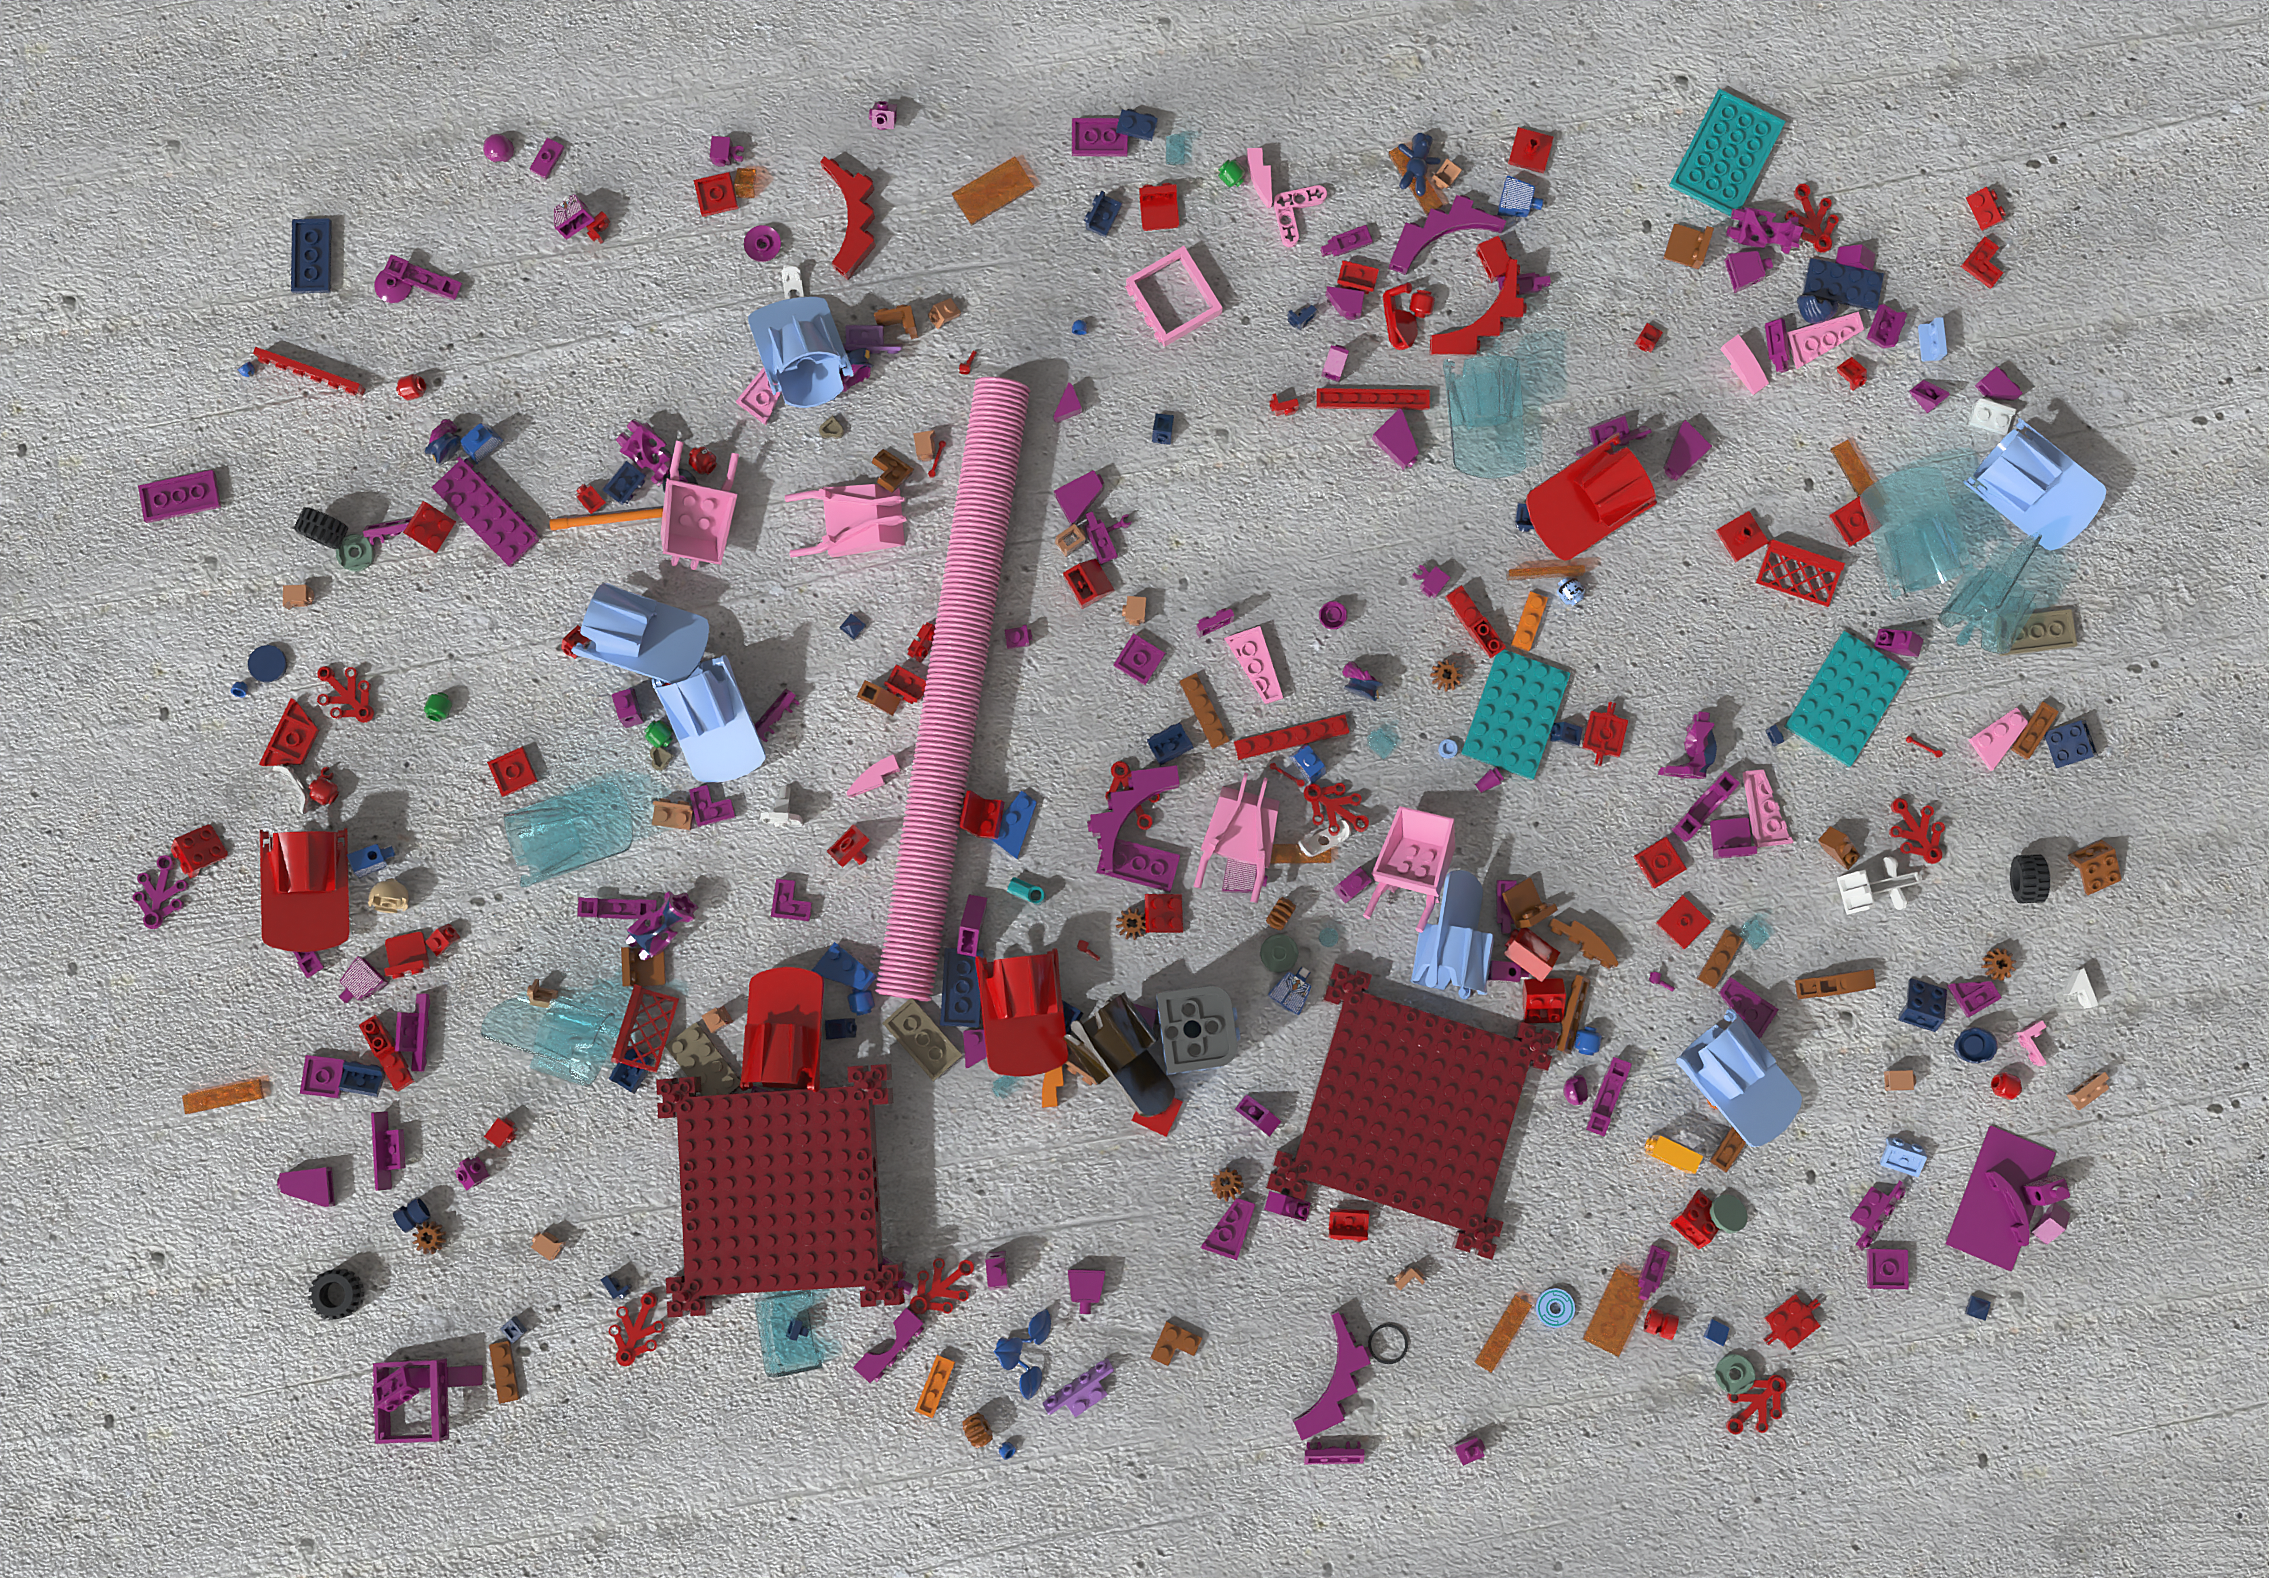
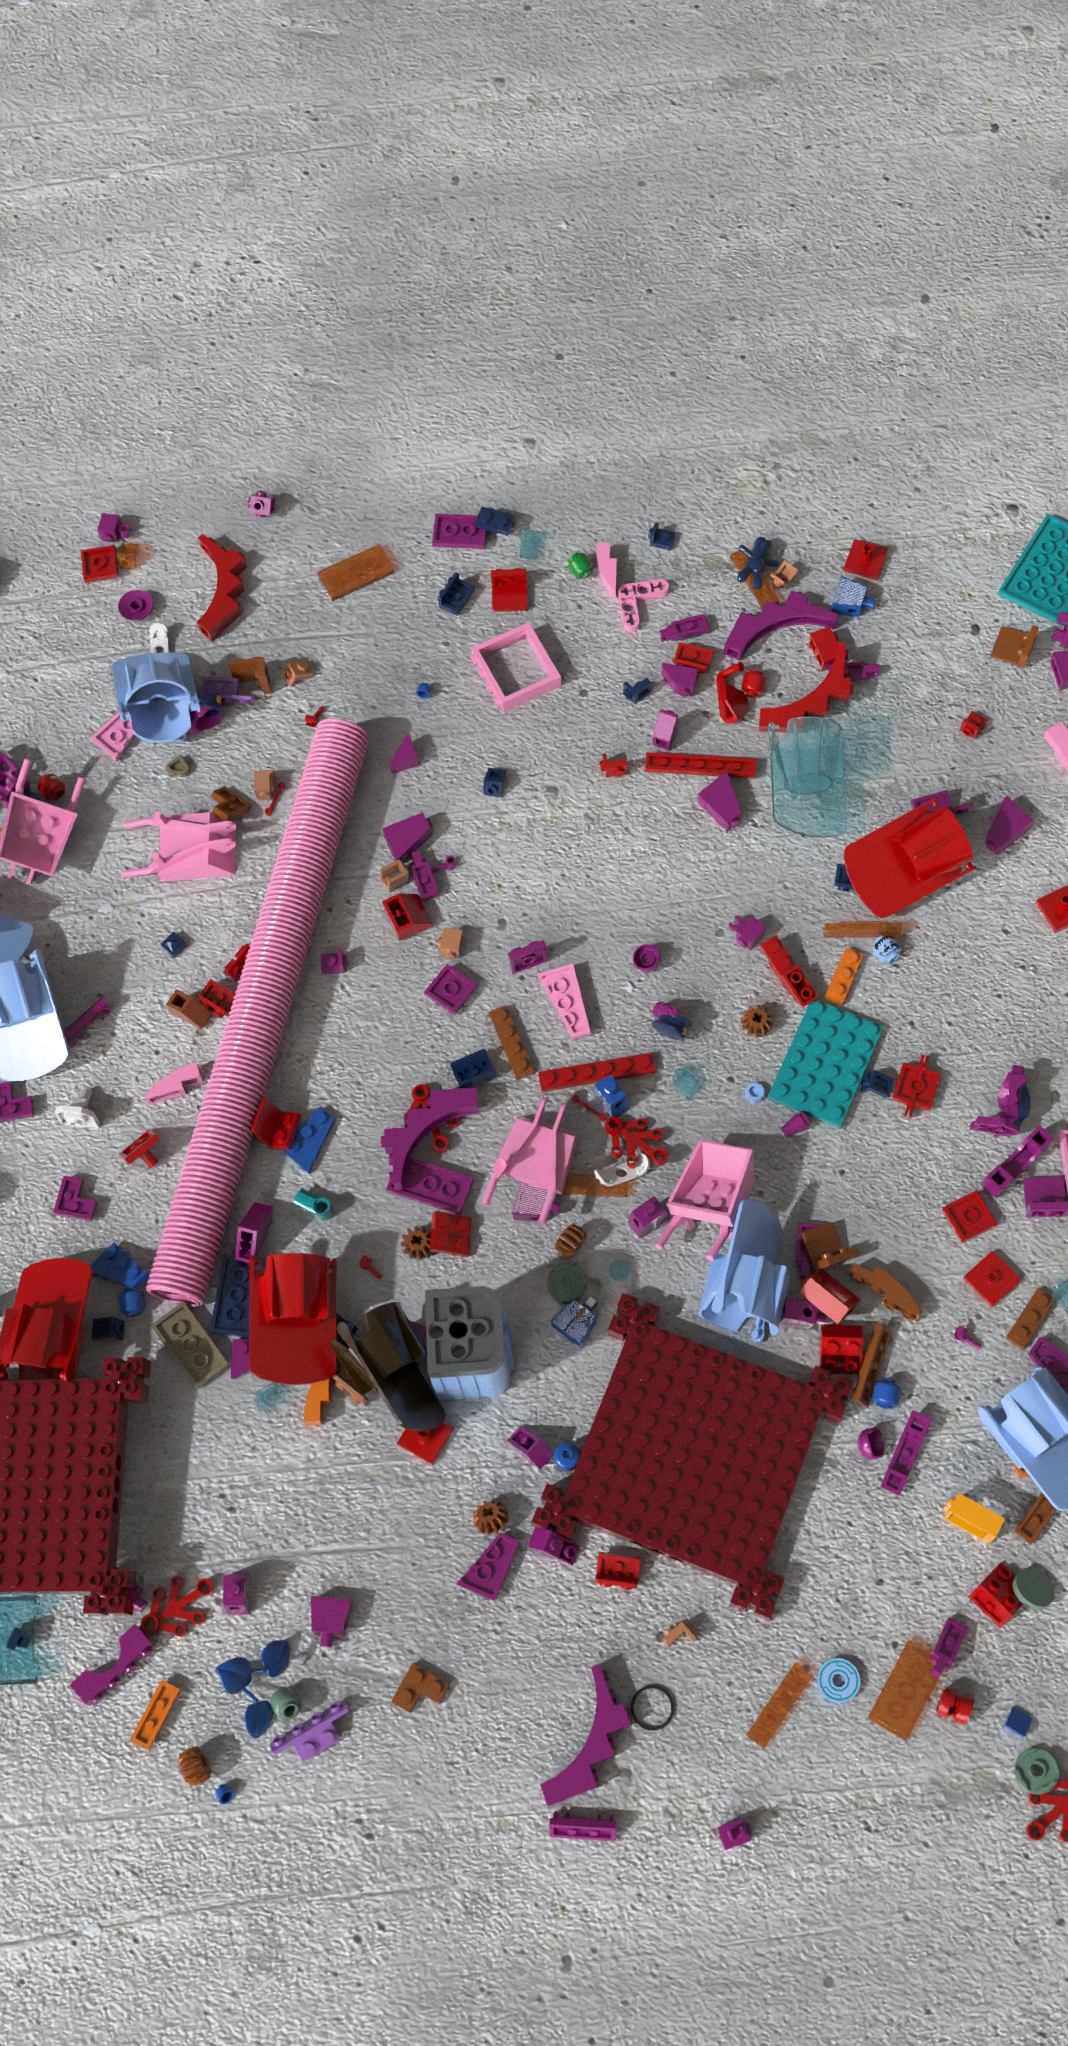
camera: 10 degrees right, 15 degrees down
(1054, 1368) = (286, 1703): none -> sand green head
(1293, 1122) = (566, 1456): none -> blue head
(1314, 135) = (661, 538): none -> dark blue bracket

